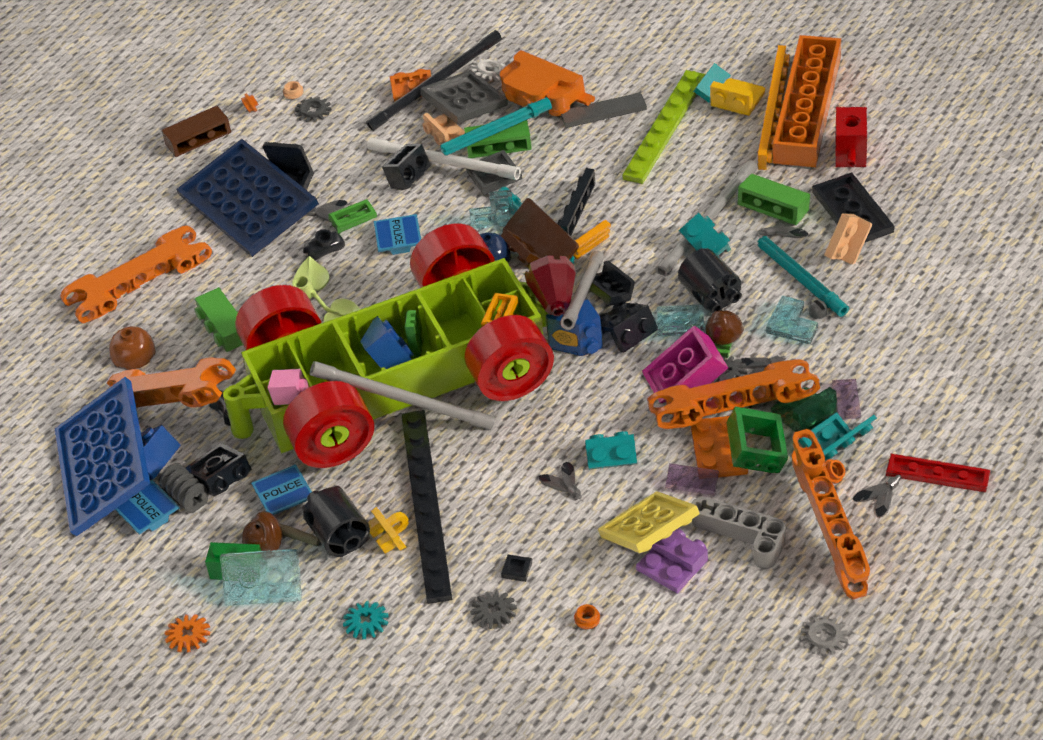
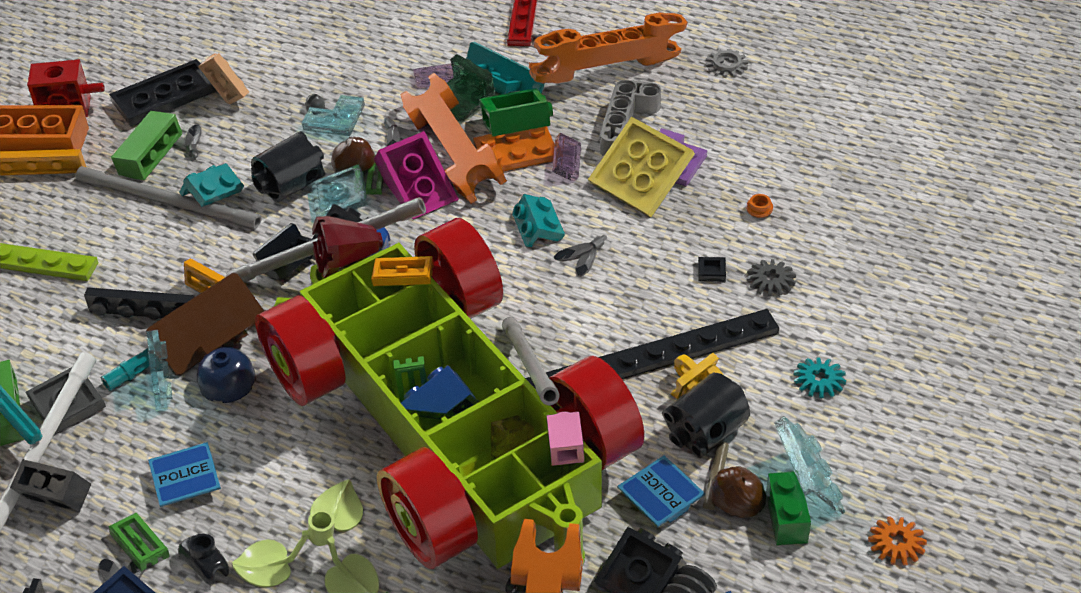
camera: 105 degrees left, 0 degrees up
(830, 298) = (263, 119): teal axle -> none

